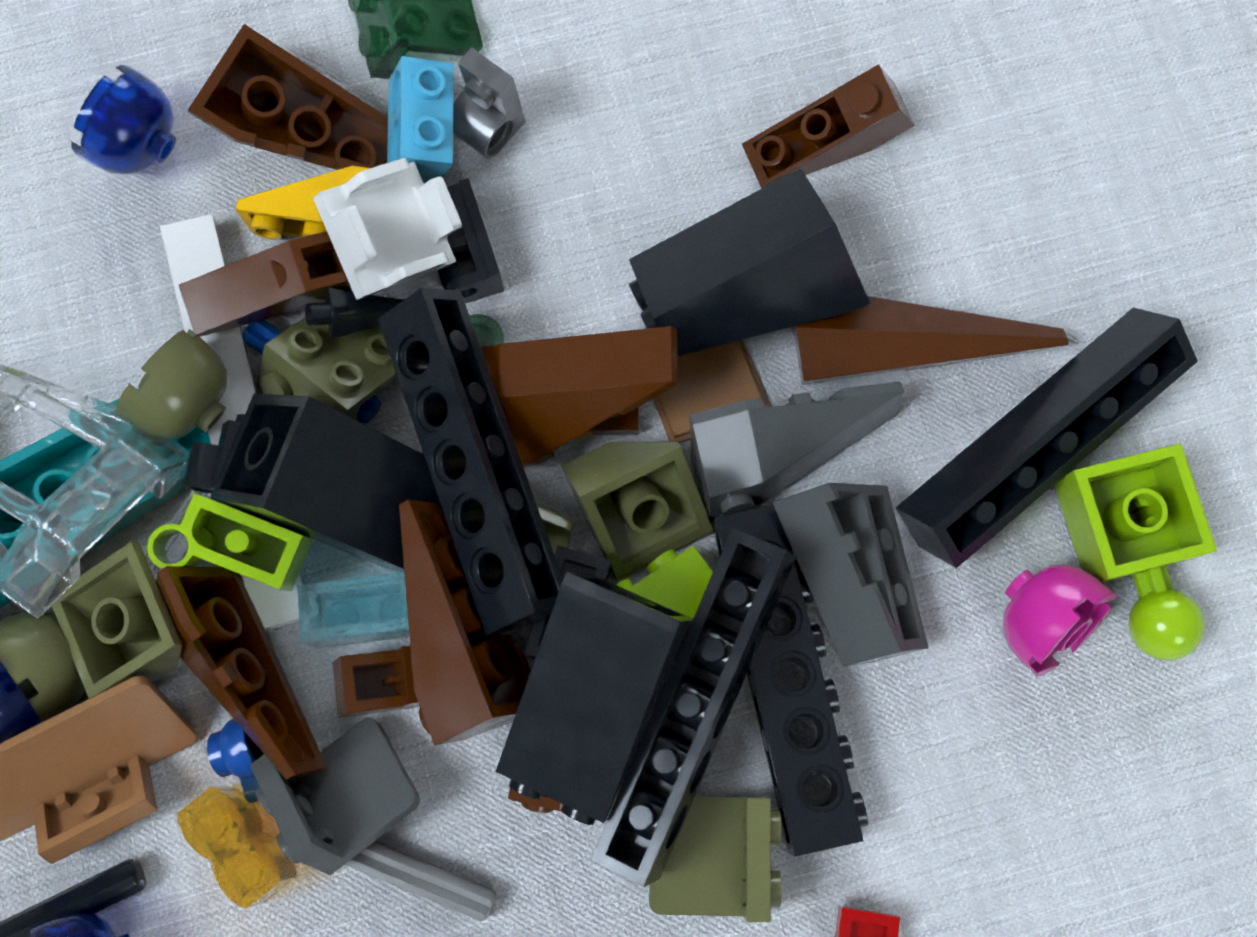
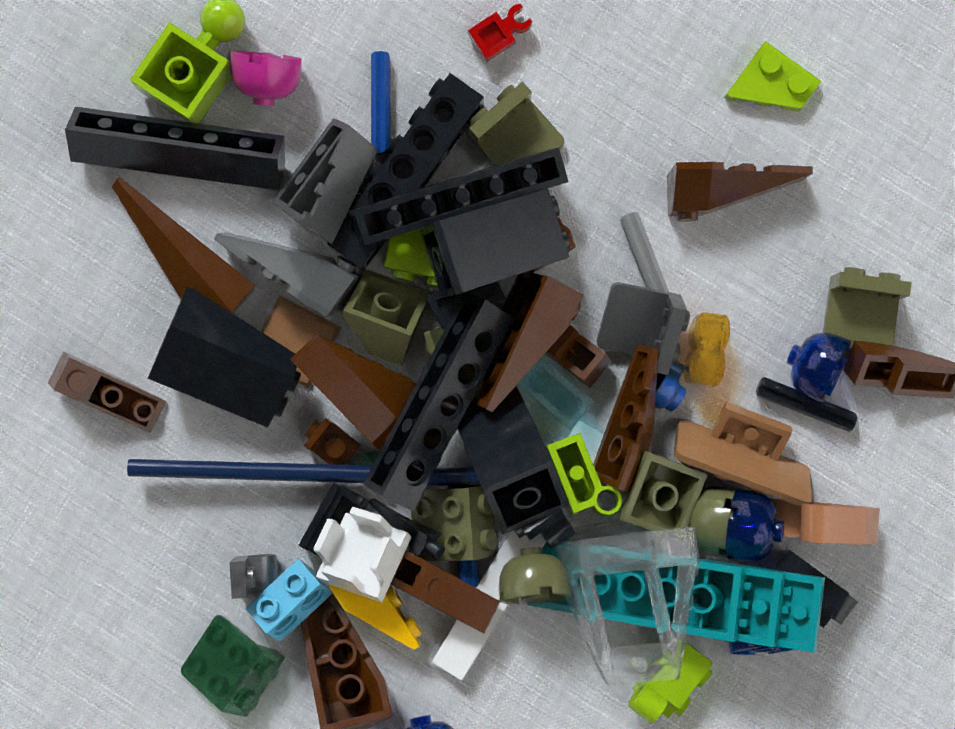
camera: 135 degrees left, 10 degrees up
(549, 313) = (330, 442): none -> reddish brown bracket
(572, 228) = (280, 471): none -> dark blue piece
(901, 727) = (380, 101): none -> blue axle

